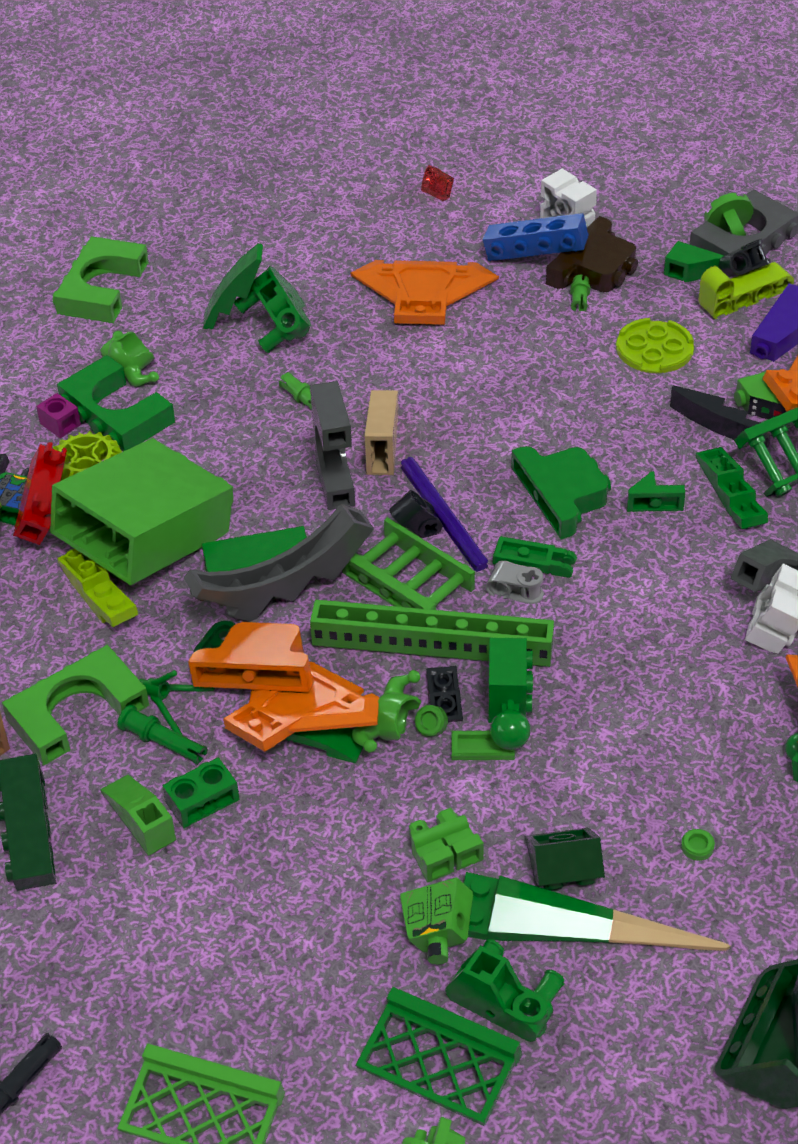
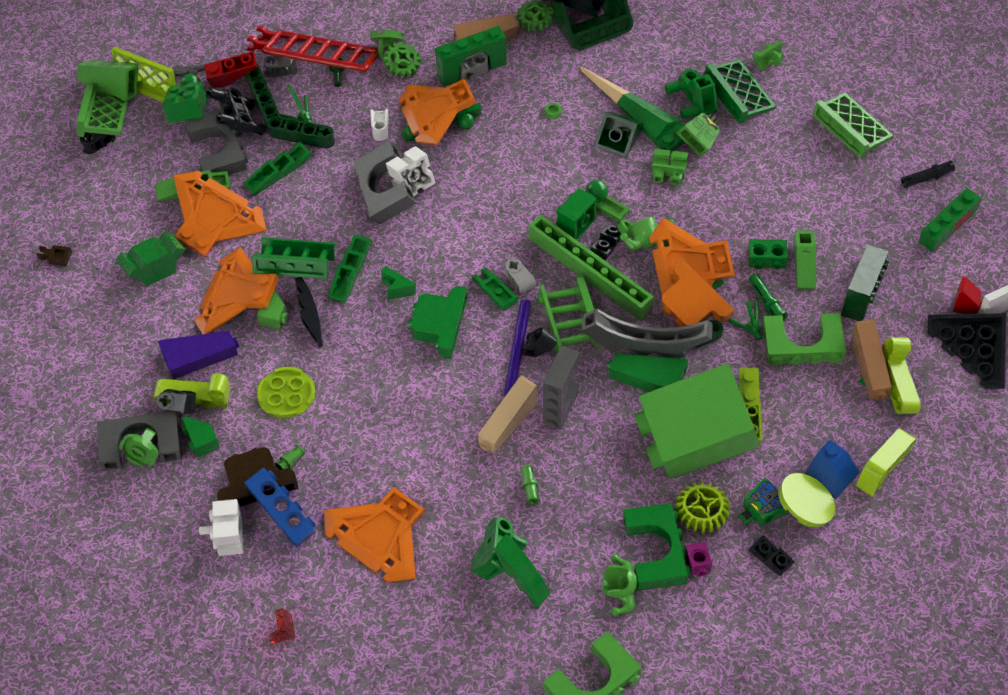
camera: 145 degrees left, 10 degrees up
(35, 507) = (751, 475): red brick -> none

